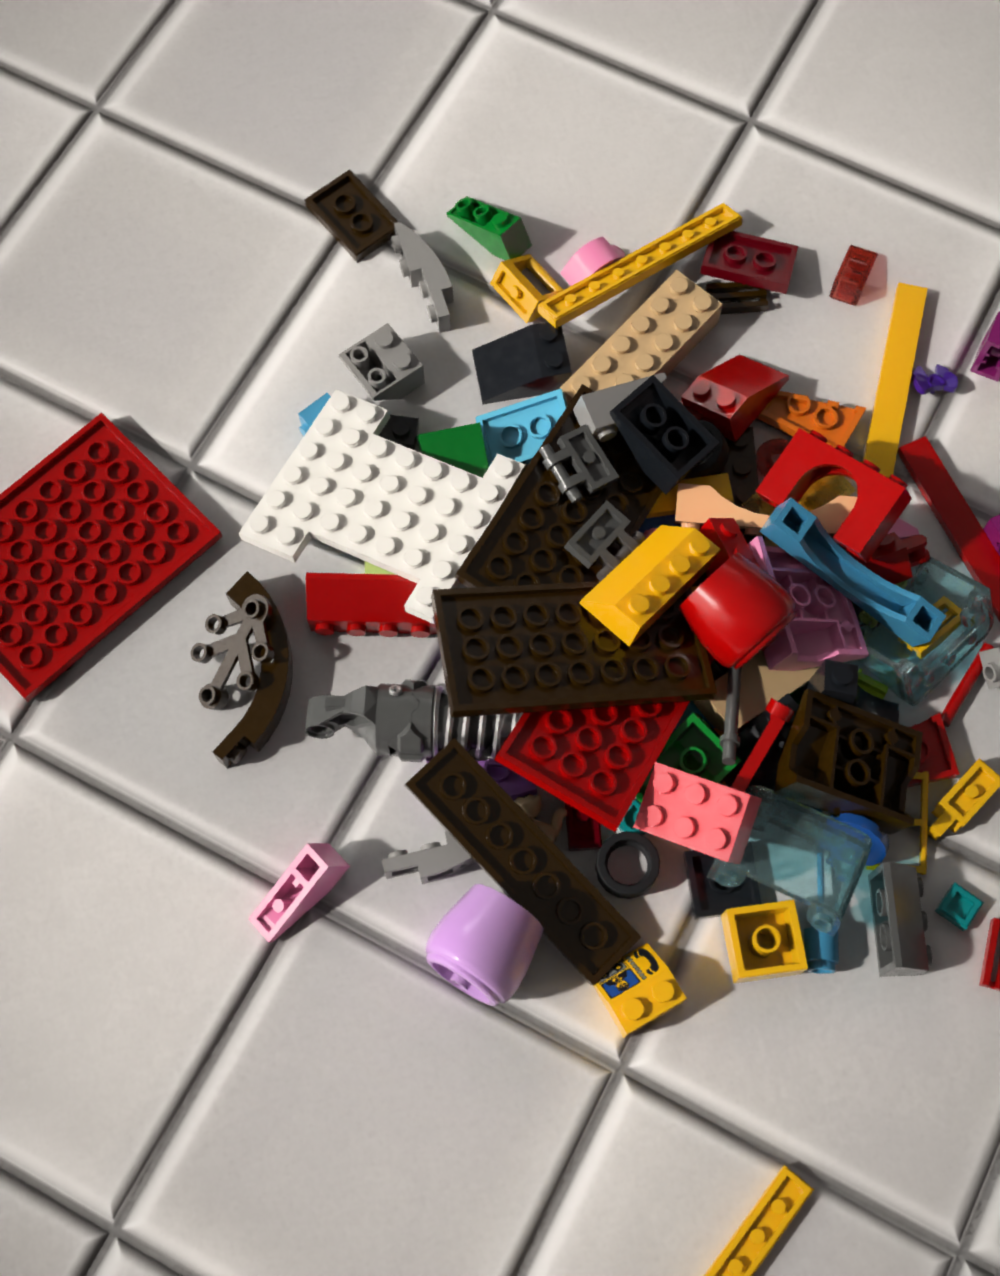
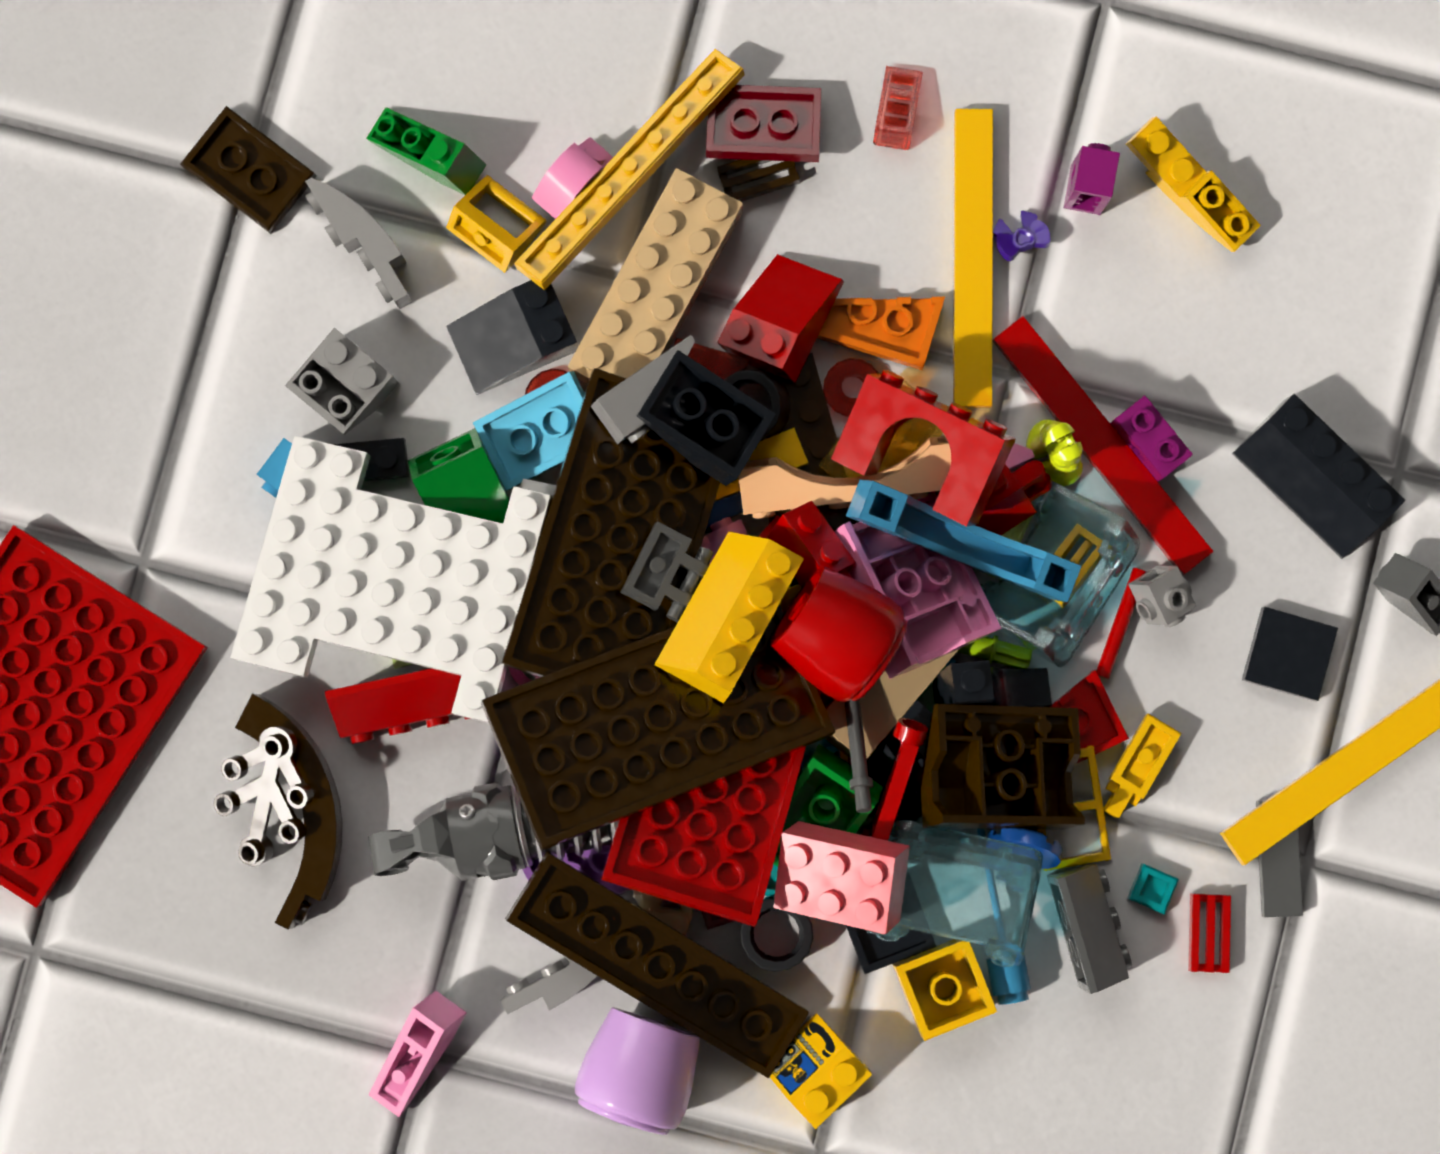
camera: 15 degrees left, 15 degrees up
(586, 459) = (622, 473): dark grey plate -> none
(941, 529) = (1064, 454): none -> neon yellow piece

